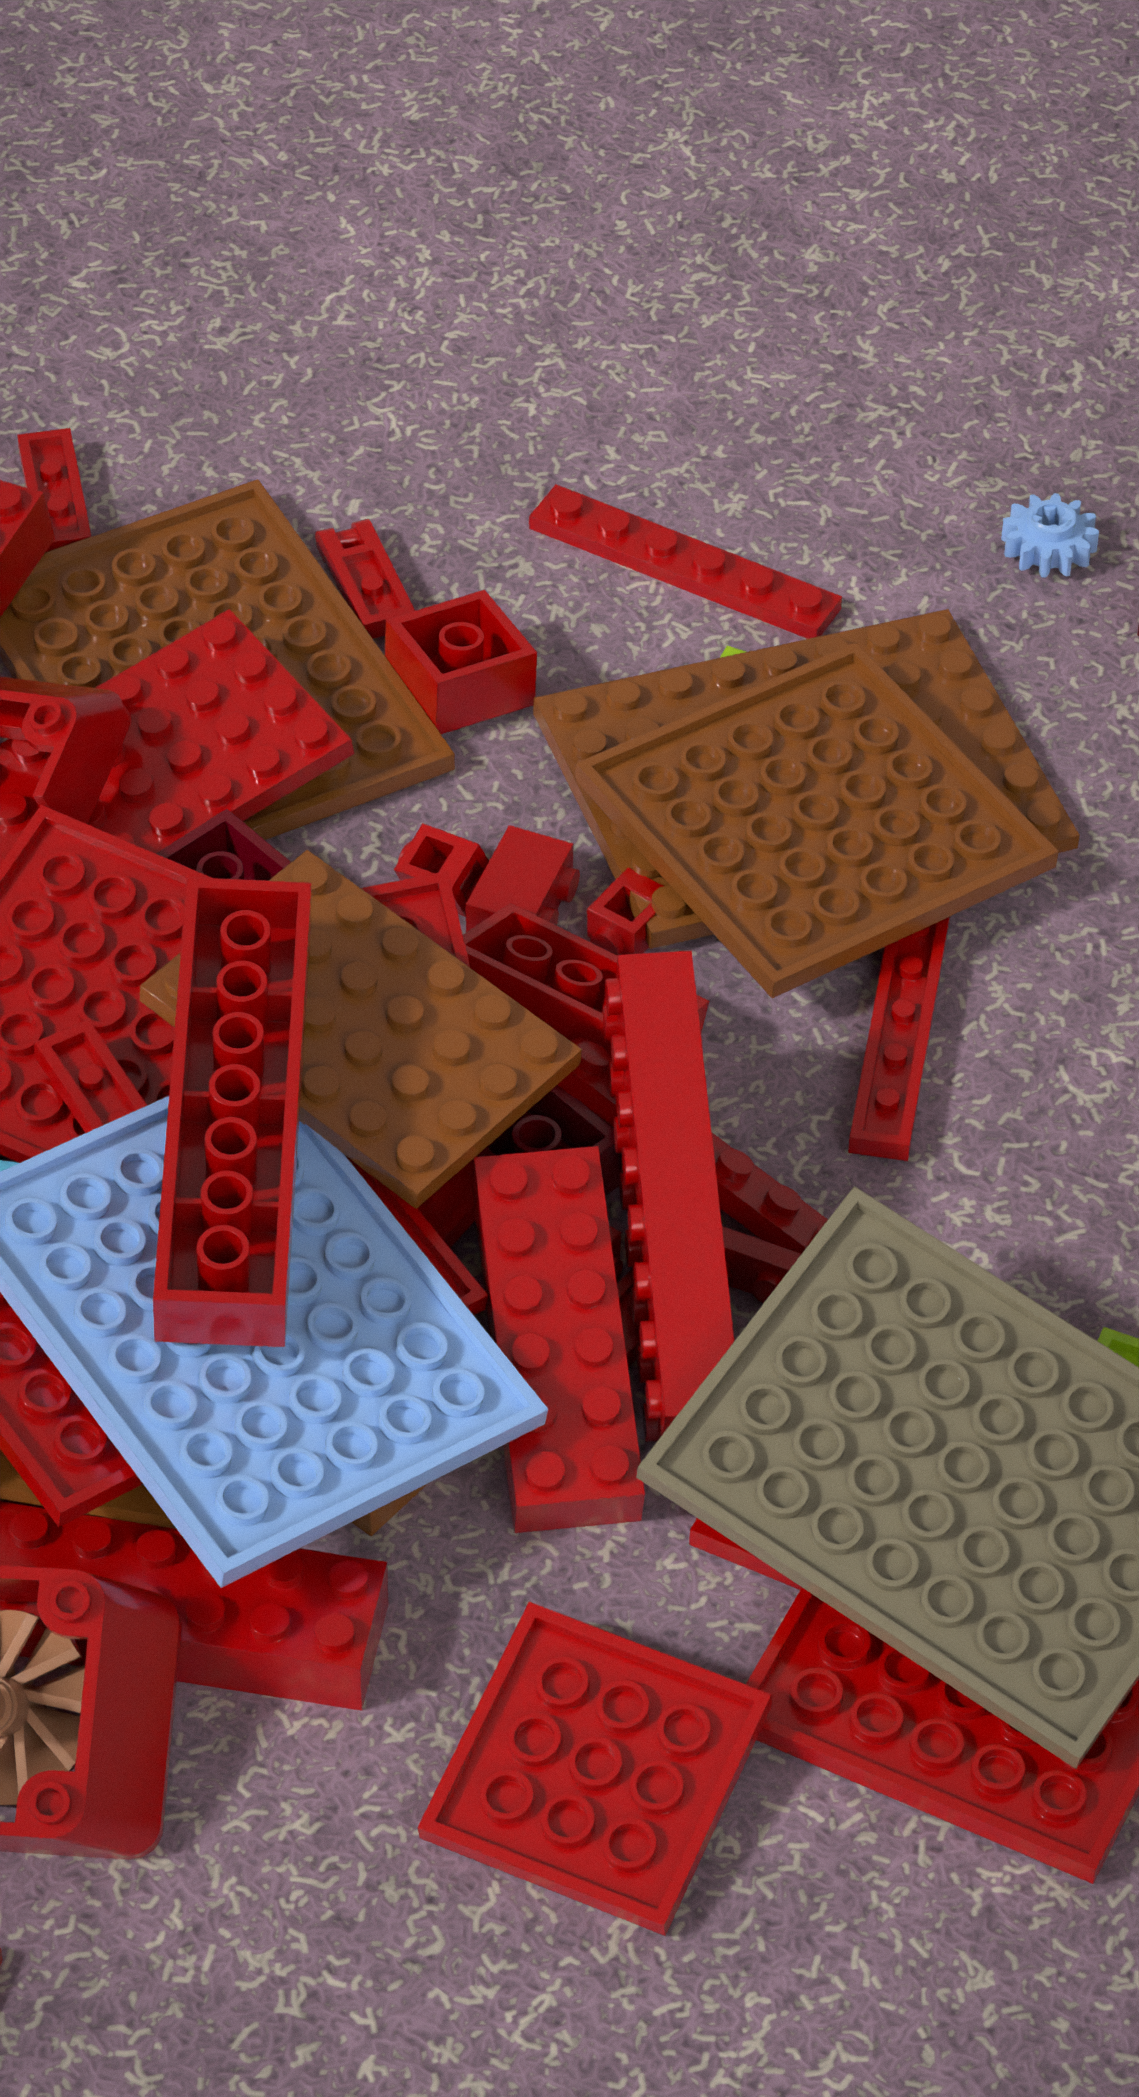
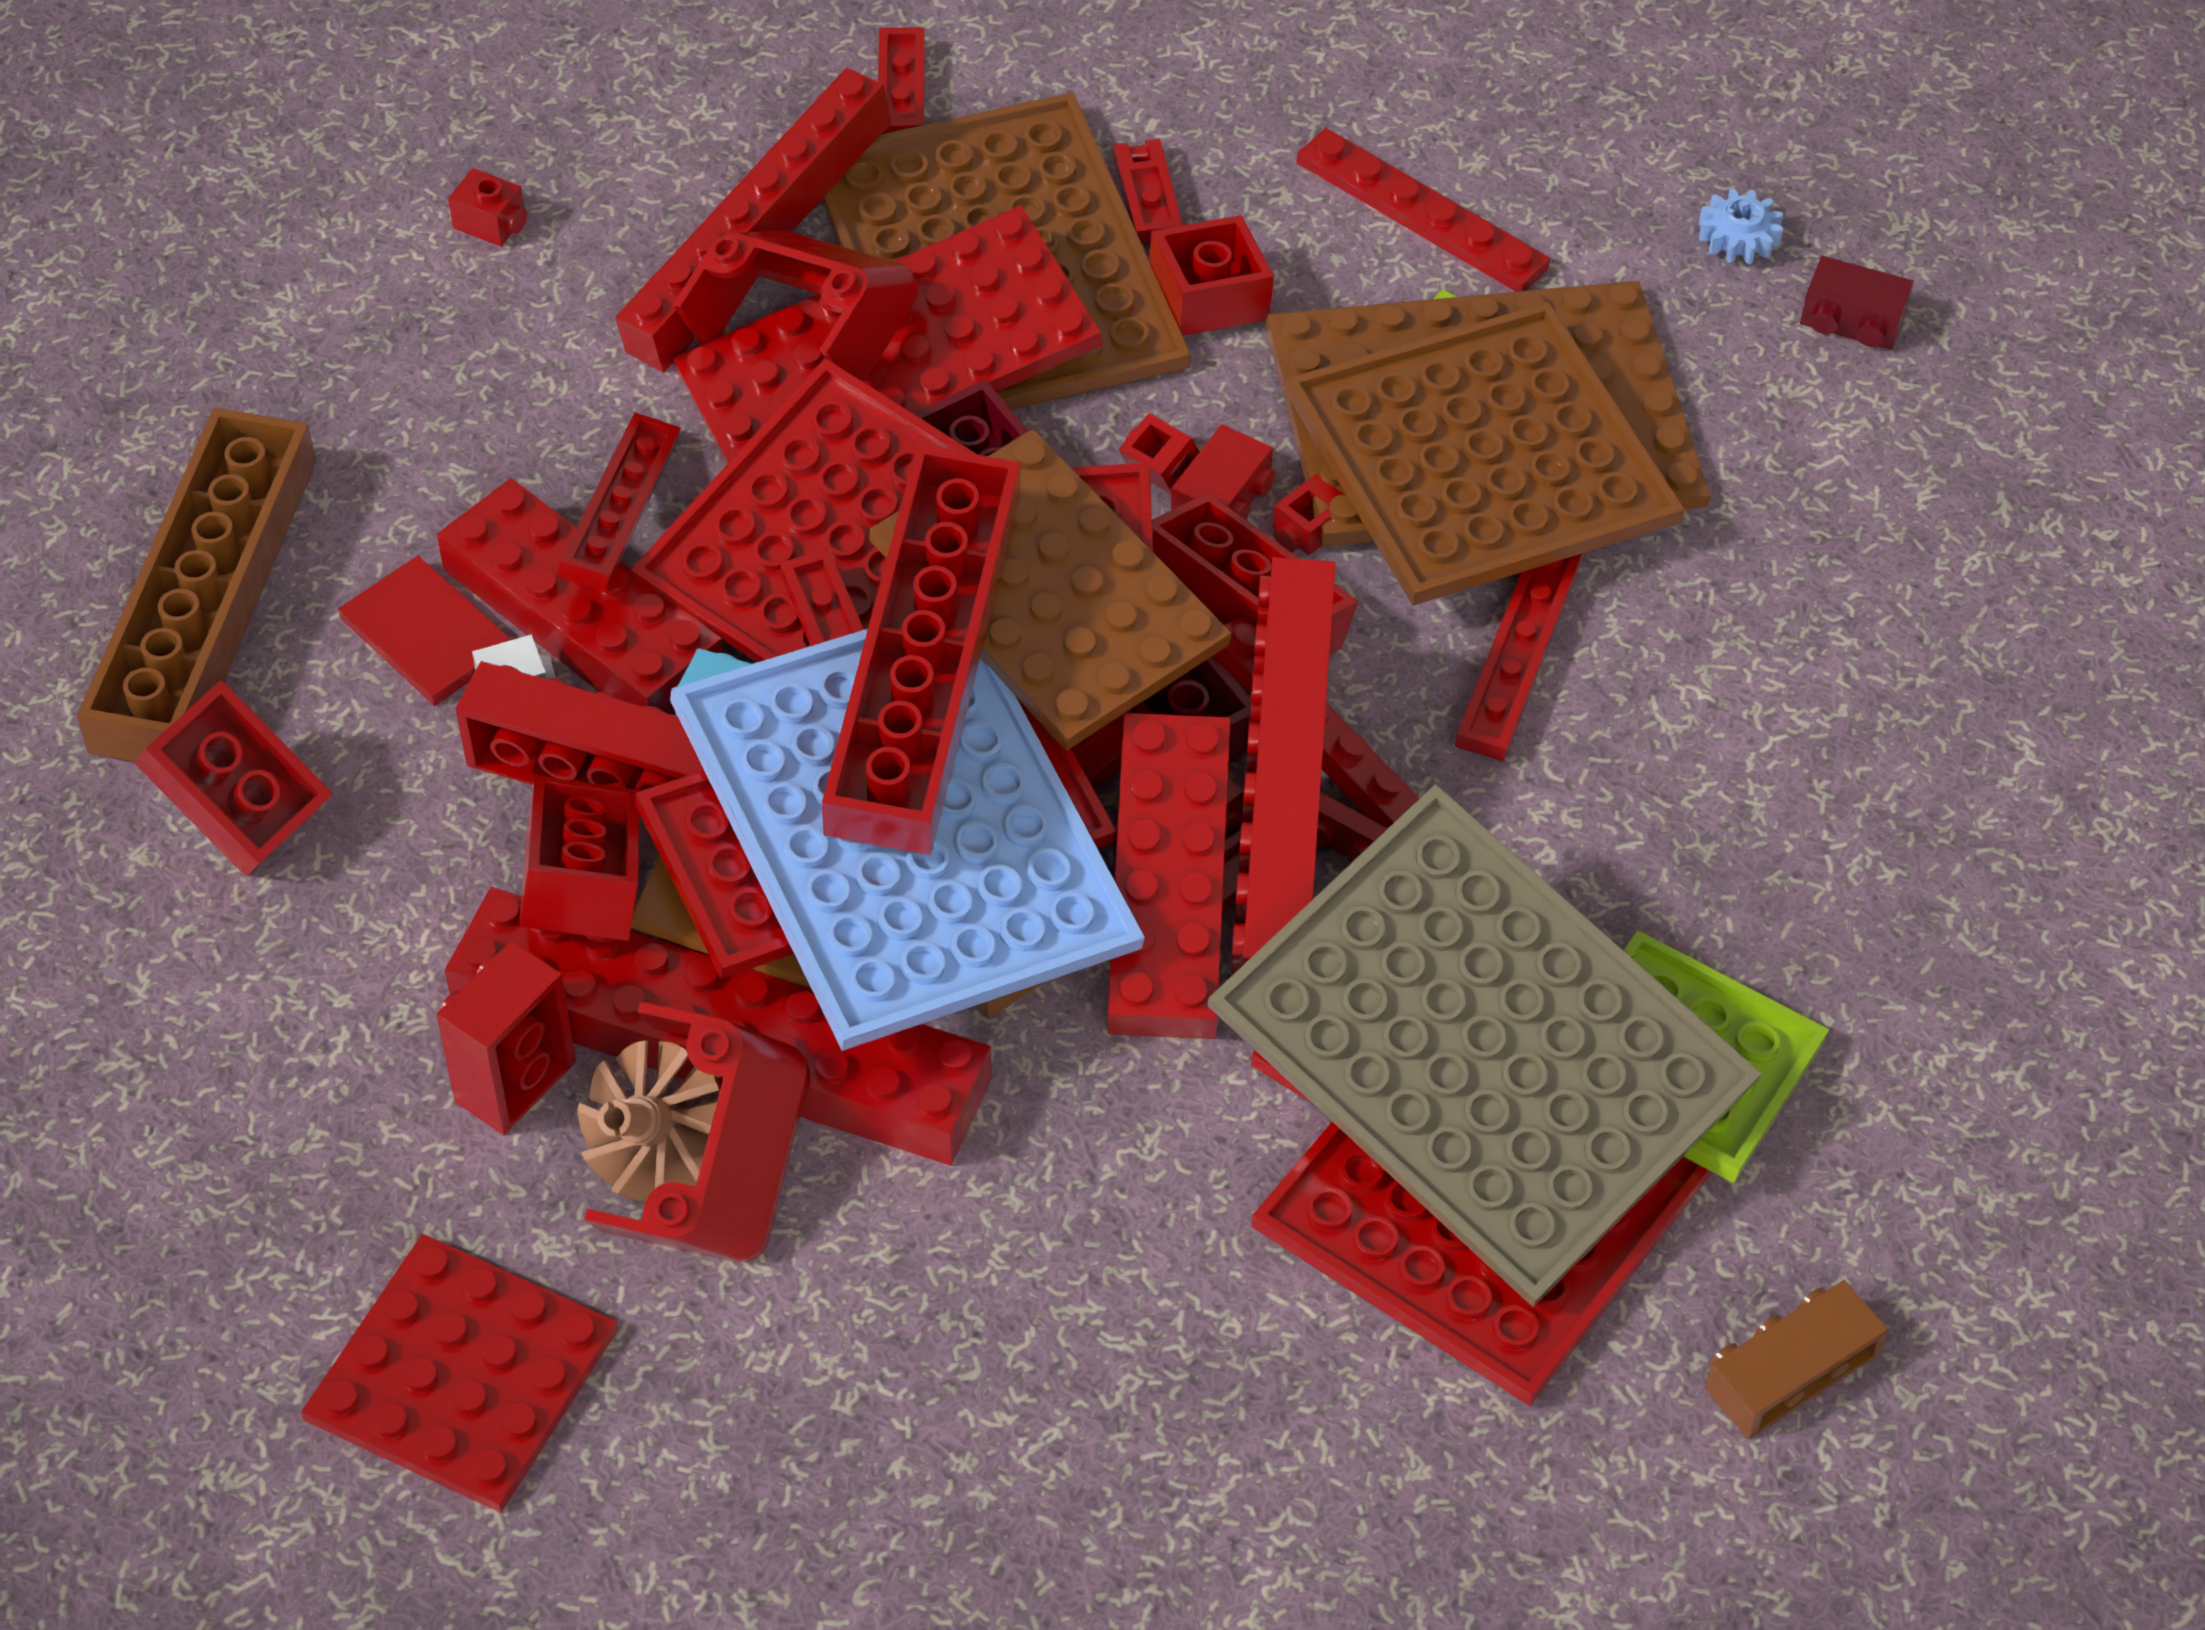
camera: 10 degrees right, 5 degrees up
(596, 1767) = (1132, 1245): red plate -> none

